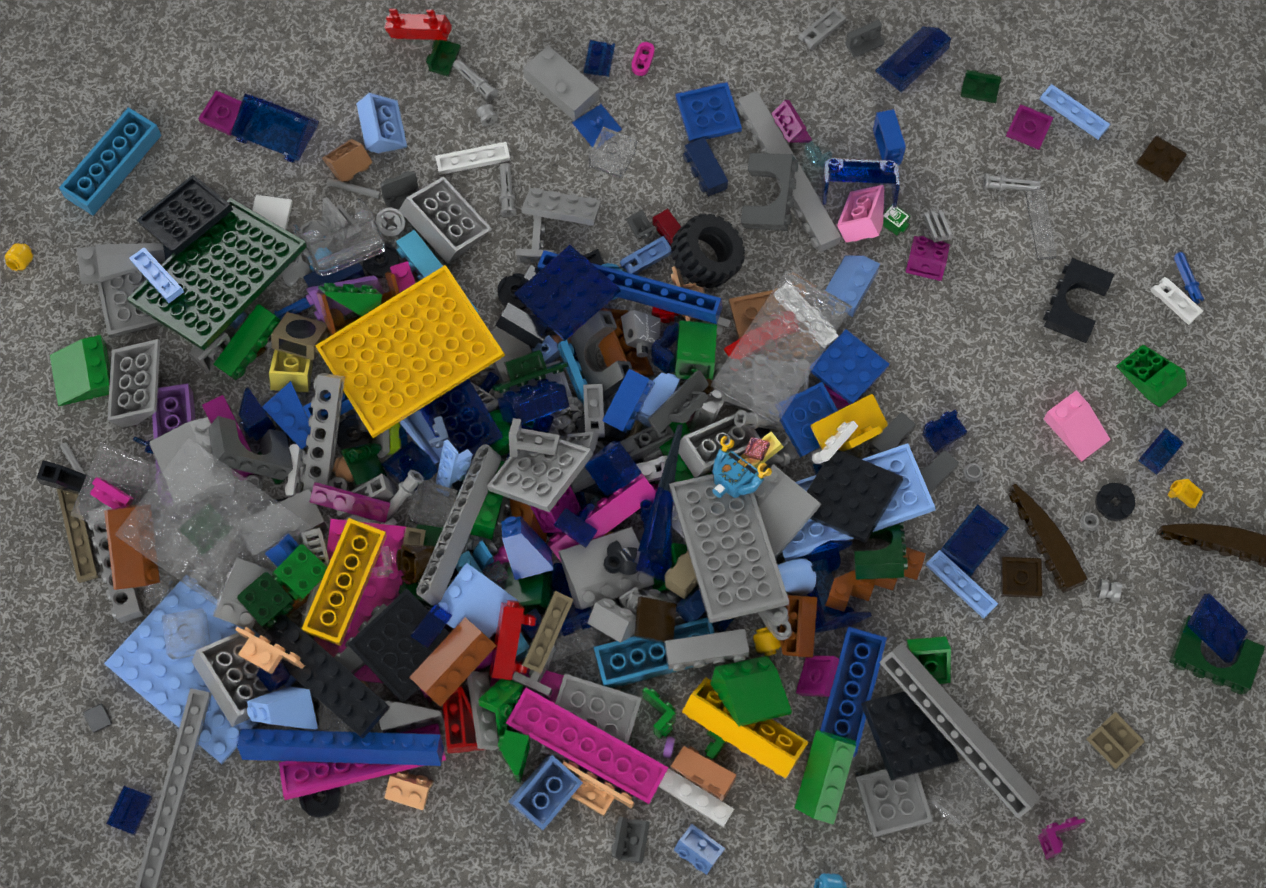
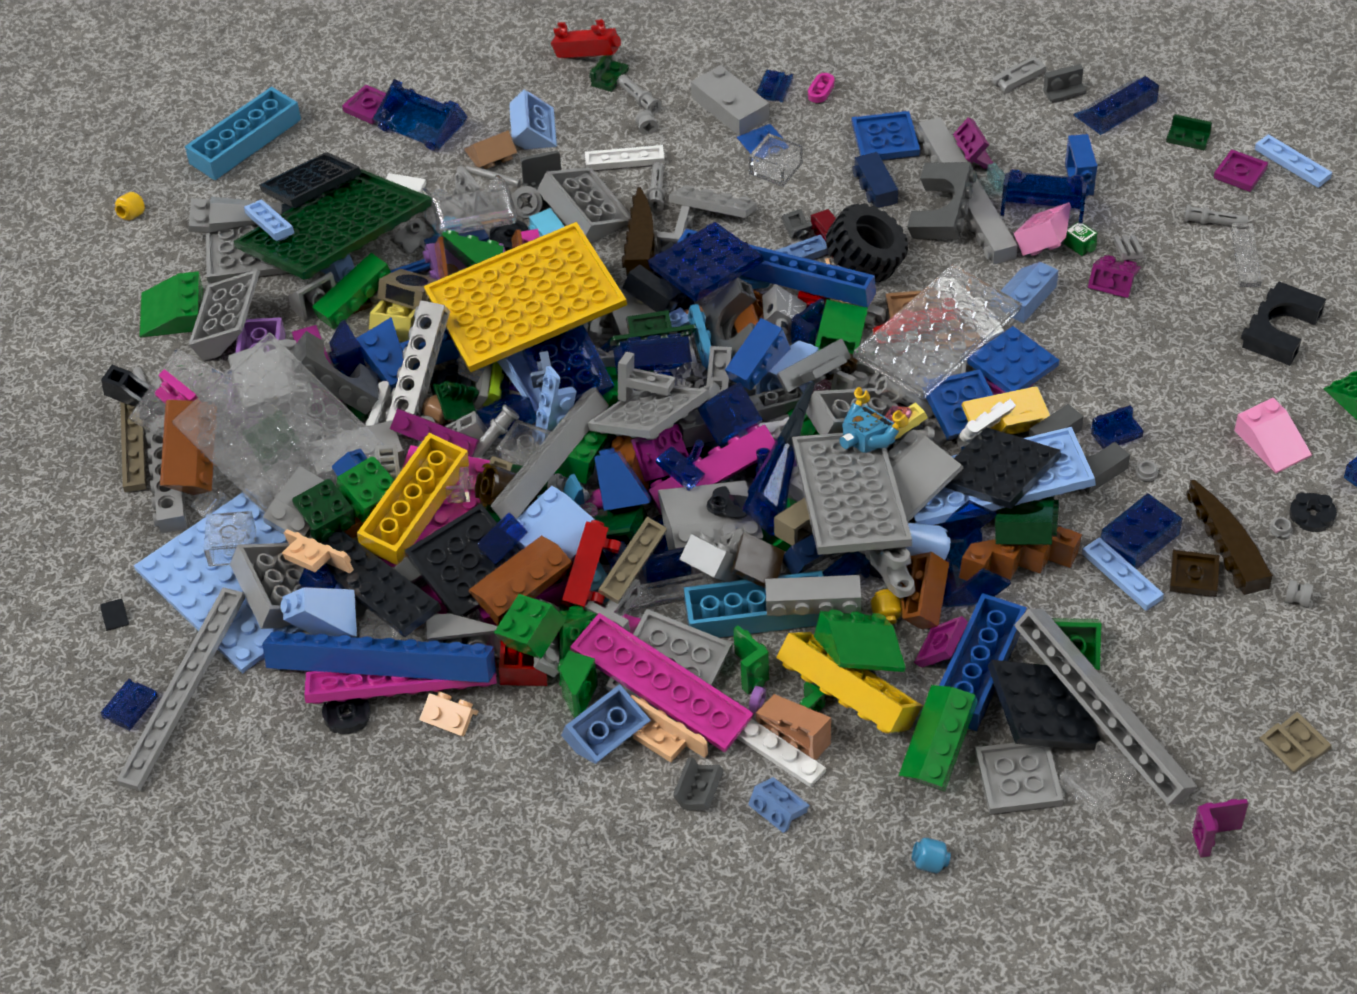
camera: 10 degrees right, 20 degrees down
(469, 713) = (530, 626): none -> green brick
(501, 255) = (640, 237): none -> dark brown slope

